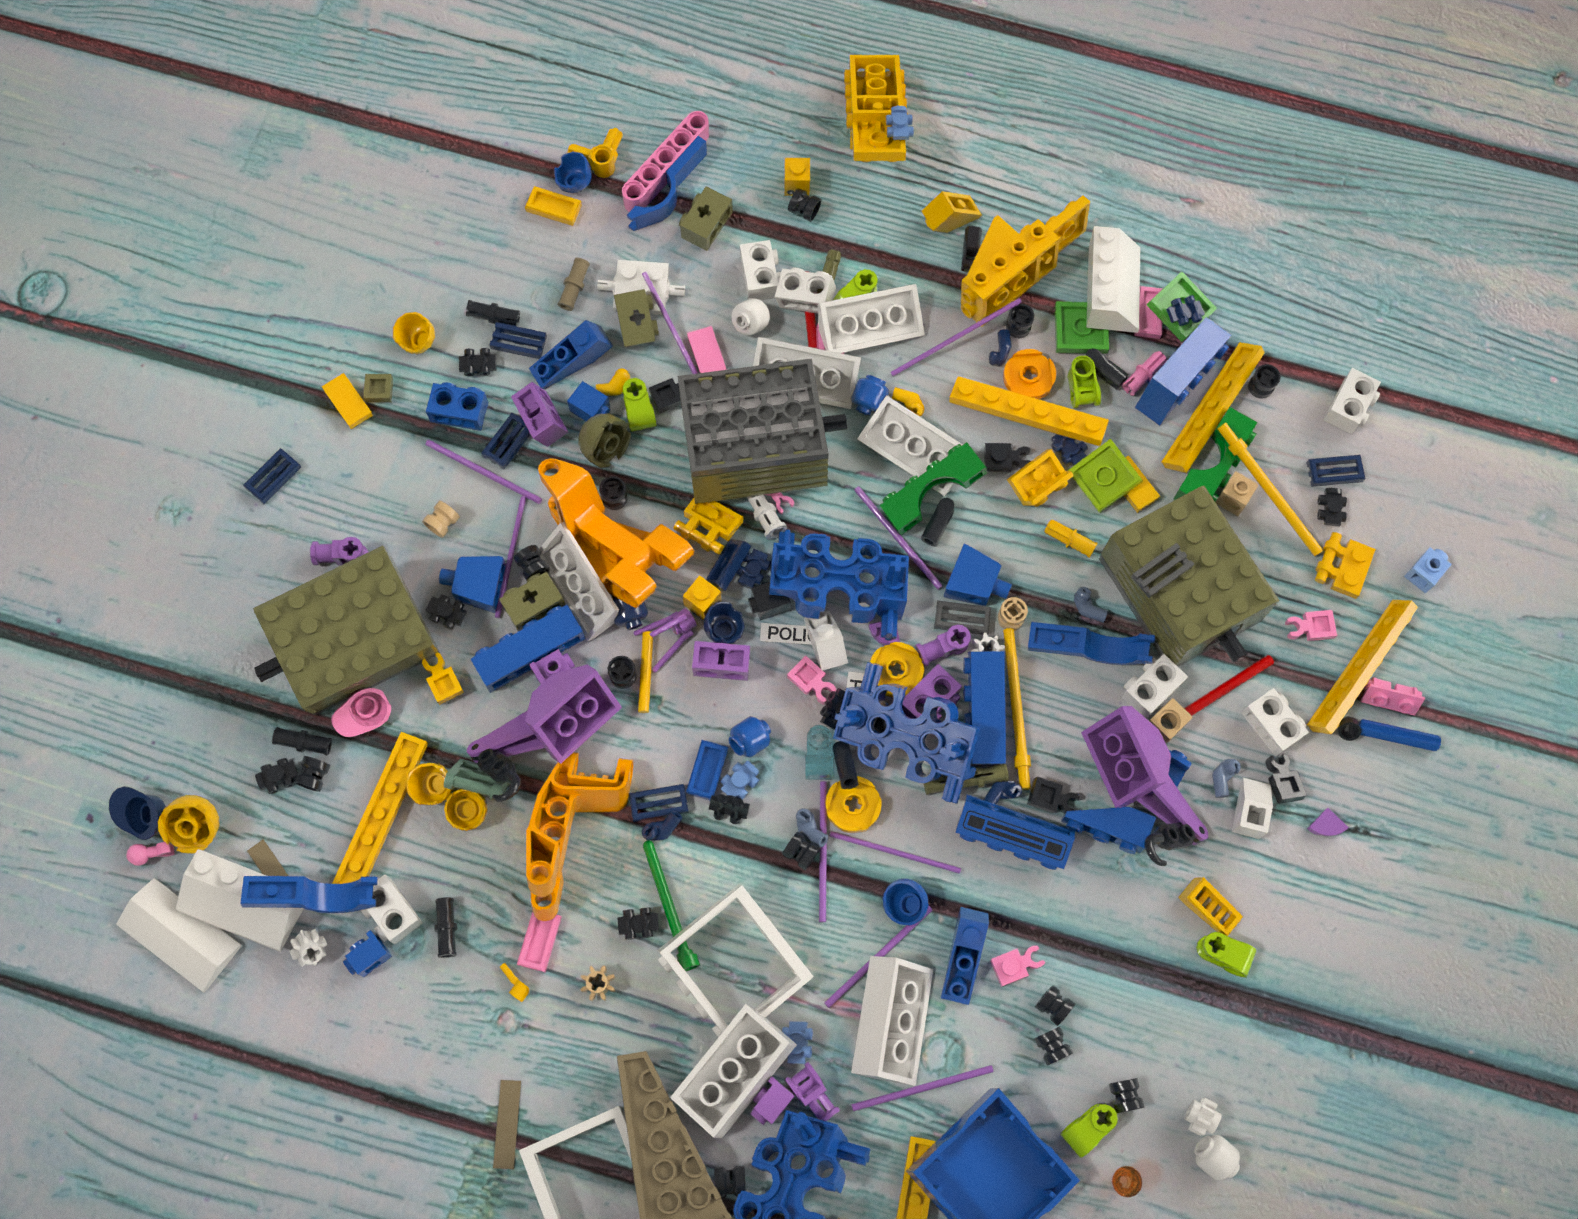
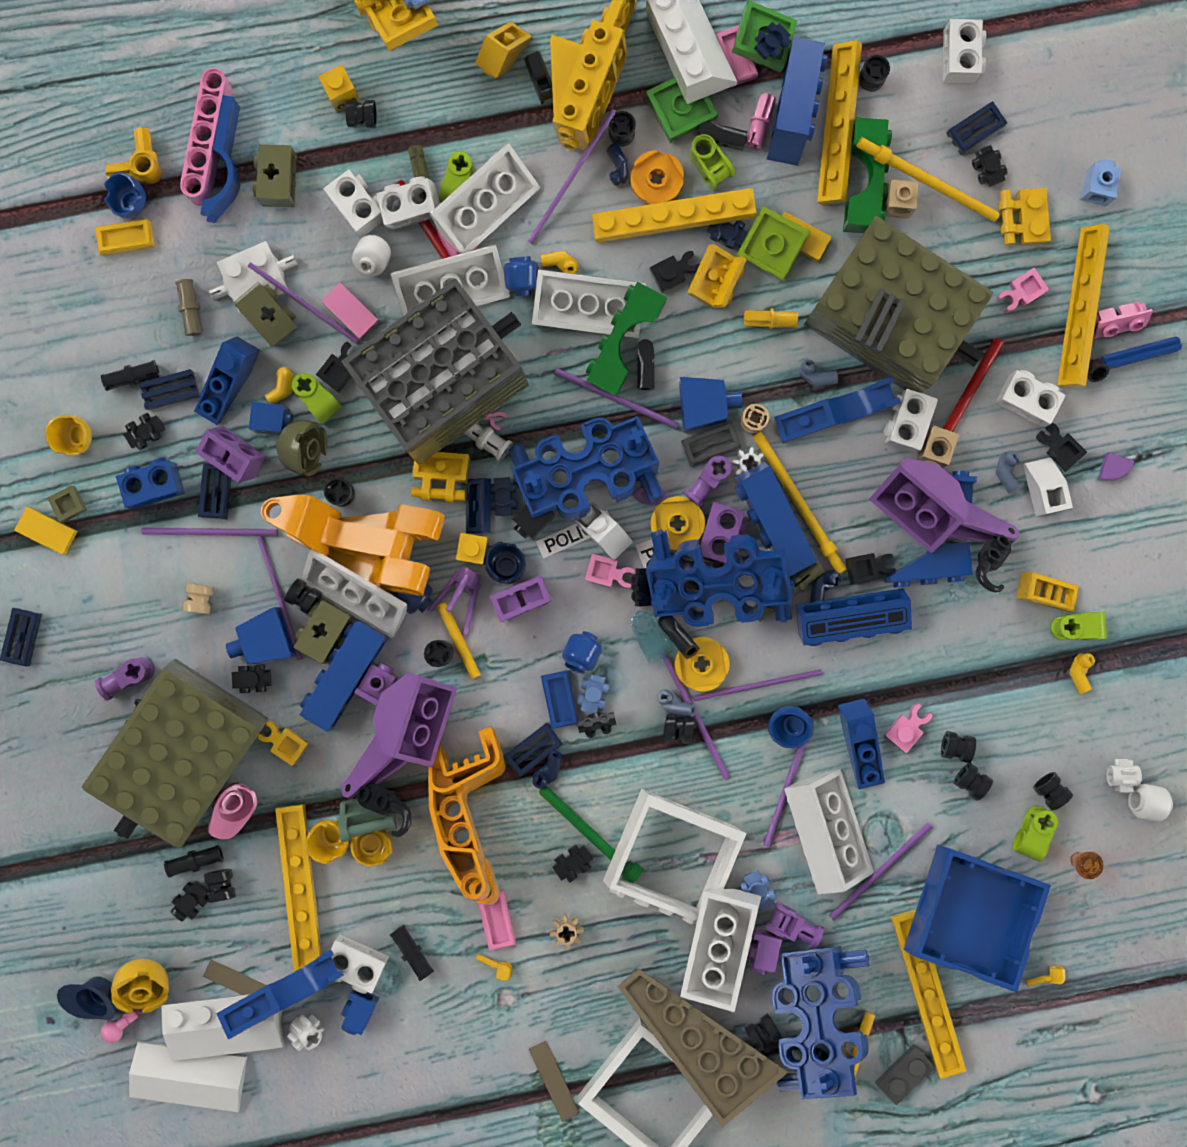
camera: 25 degrees left, 15 degrees up
(1206, 995) = (1078, 671): none -> yellow arm

